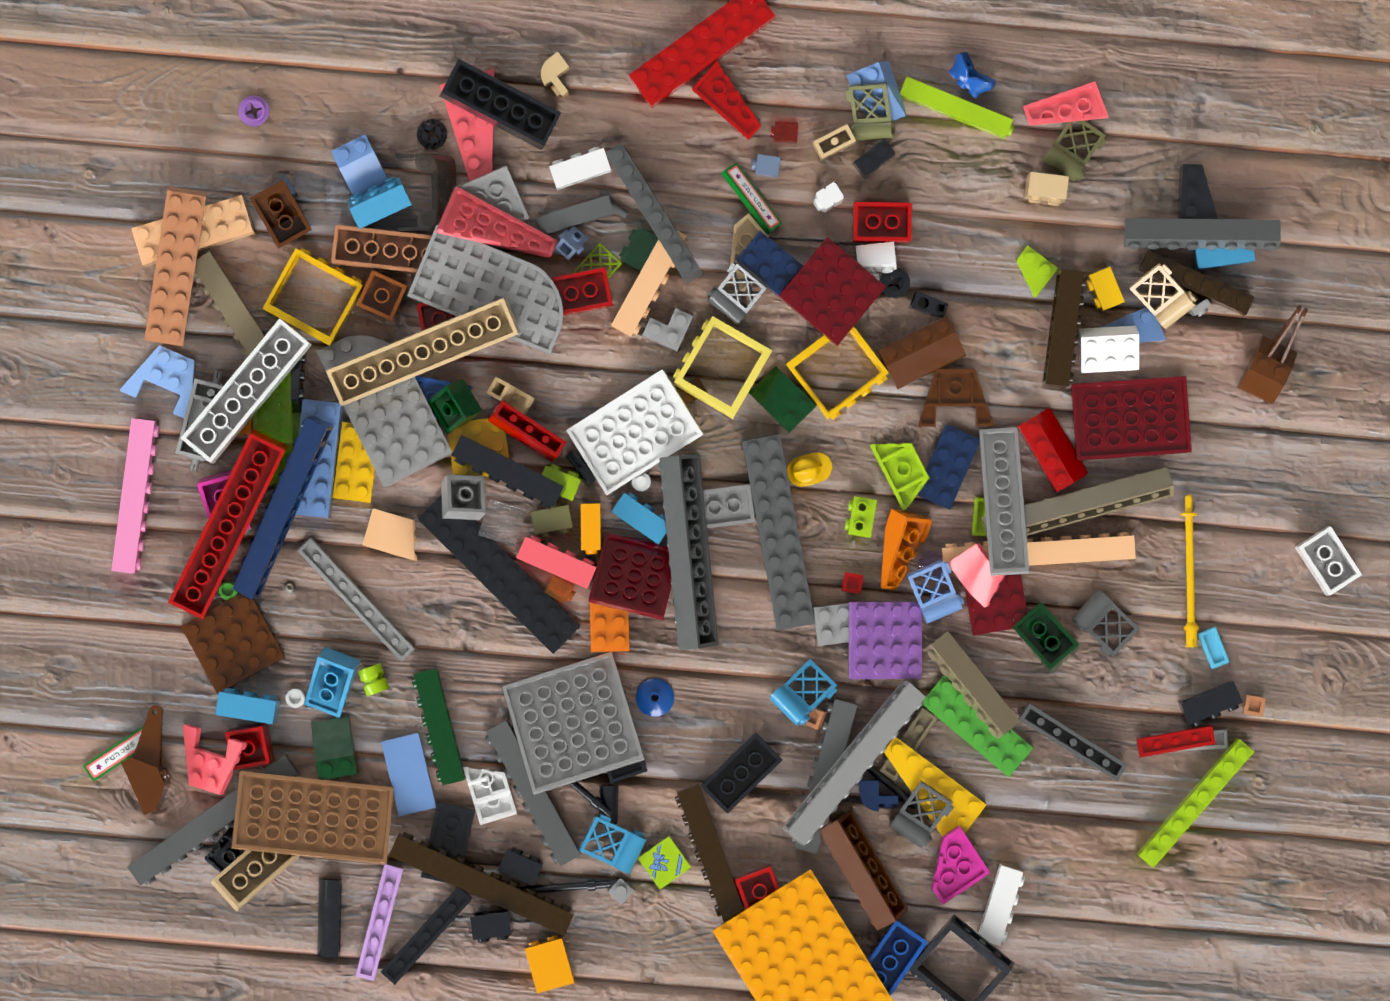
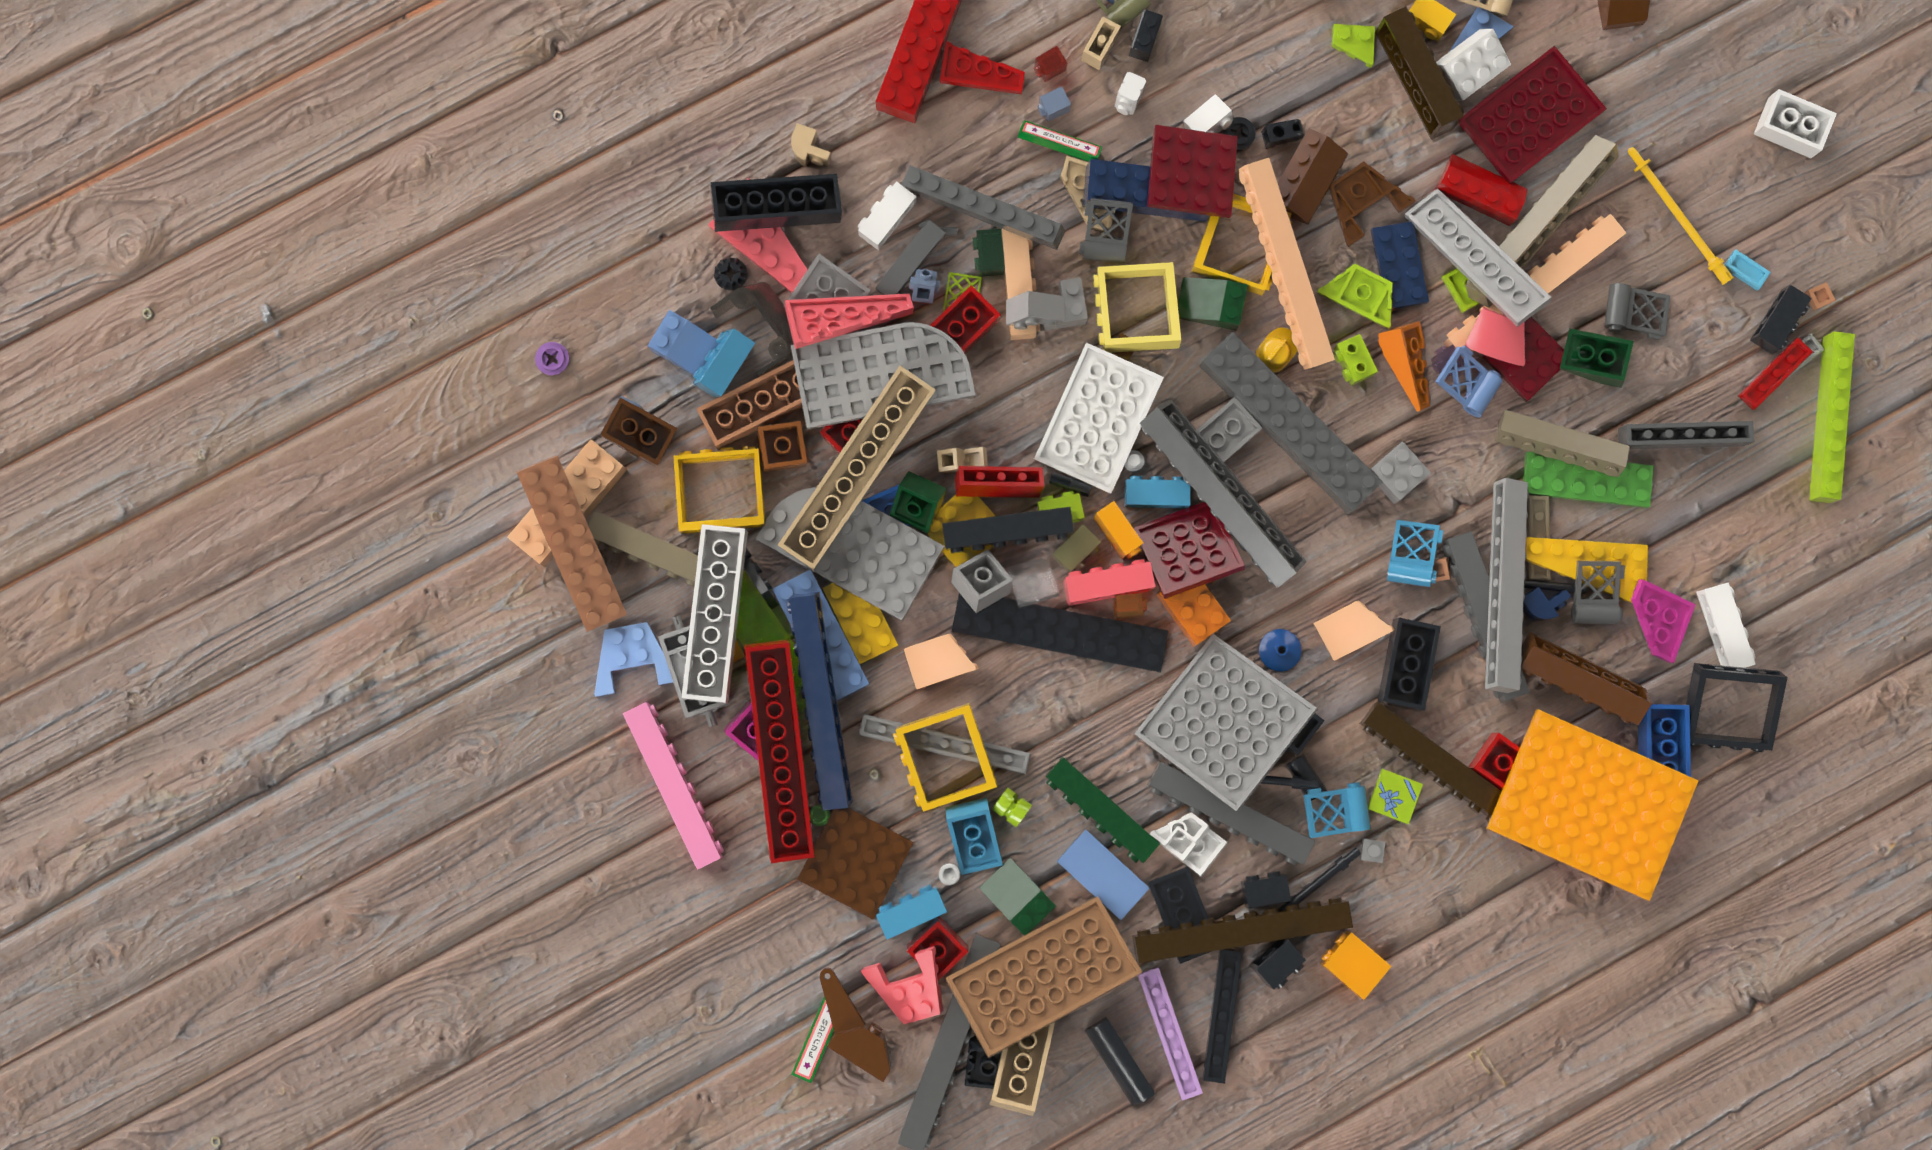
camera: 40 degrees left, 5 degrees down
(379, 616) = (907, 758): none -> yellow window
(636, 318) = (1035, 309): none -> light grey brick
(716, 717) = (1350, 629): none -> light nougat slope
(852, 583) = (1387, 425): red plate -> none
(856, 409) = (1286, 263): none -> light nougat brick
(882, 222) = (1192, 85): red brick -> none
(885, 640) = (1455, 456): medium lavender plate -> none

